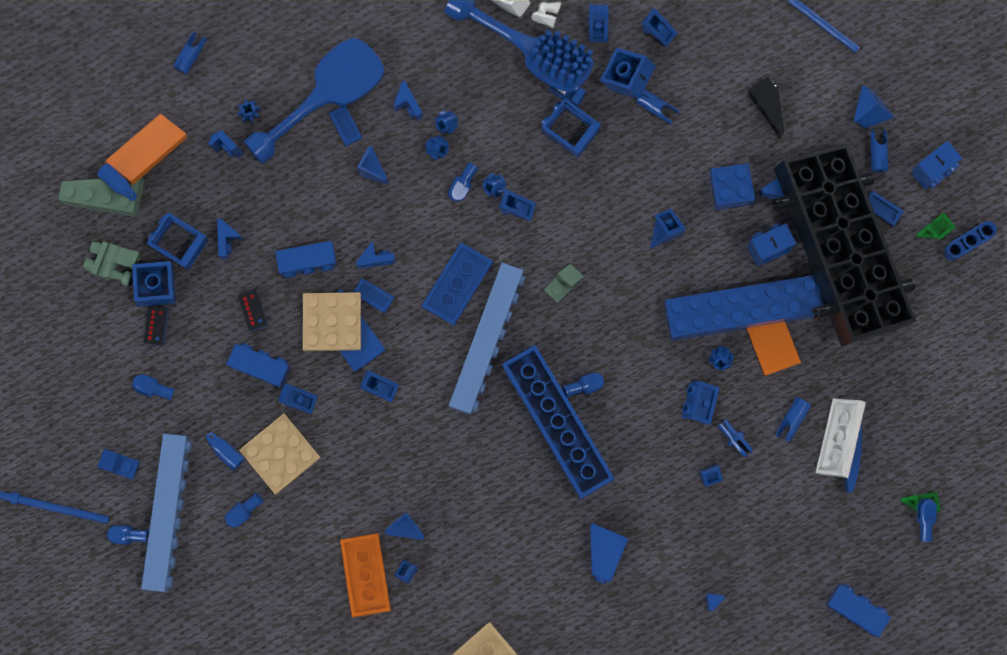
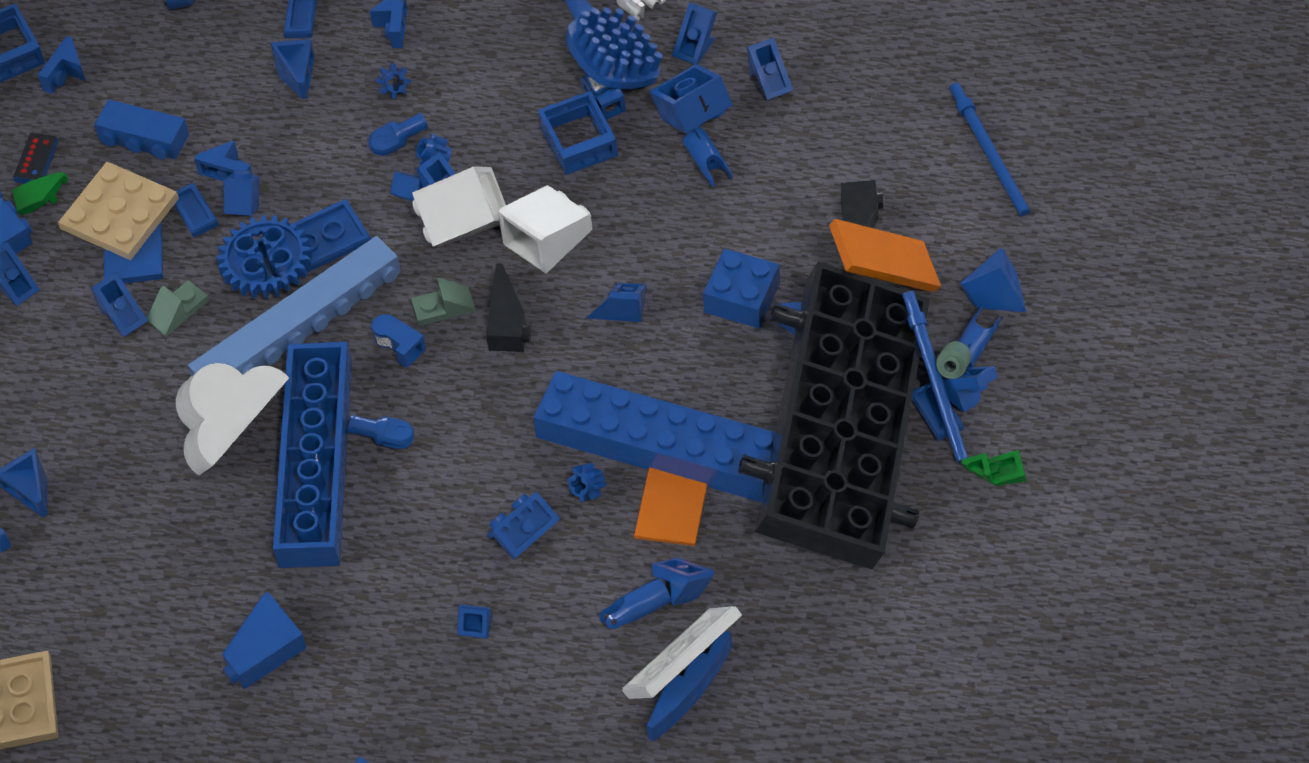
camera: 30 degrees right, 25 degrees down
(271, 333) = (38, 192): none -> green slope
(400, 274) = (241, 193): none -> blue brick
(409, 366) = (174, 308): none -> sand green slope
(446, 122) = (424, 59): blue gear -> none
(455, 297) = (243, 263): none -> blue gear
(491, 213) = (404, 184): none -> blue slope
(493, 426) = (219, 406): none -> white brick
(539, 217) = (459, 205): none -> white slope
(552, 319) = (399, 337): none -> blue leg
(594, 203) = (543, 226): none -> white slope
(609, 275) = (506, 319): none -> black slope
(733, 436) = (538, 587): blue arm -> none
(771, 244) = (745, 373): blue brick -> none
(806, 128) = (884, 255): none -> orange tile
(809, 388) = (685, 578): none -> blue slope
(853, 165) = (917, 322): none -> blue bar
(883, 177) = (953, 360): none -> sand green brick
(892, 185) = (965, 390): none -> blue slope
(936, 165) = (1040, 381): blue brick -> none
(978, 237) = (1046, 493): blue beam -> none

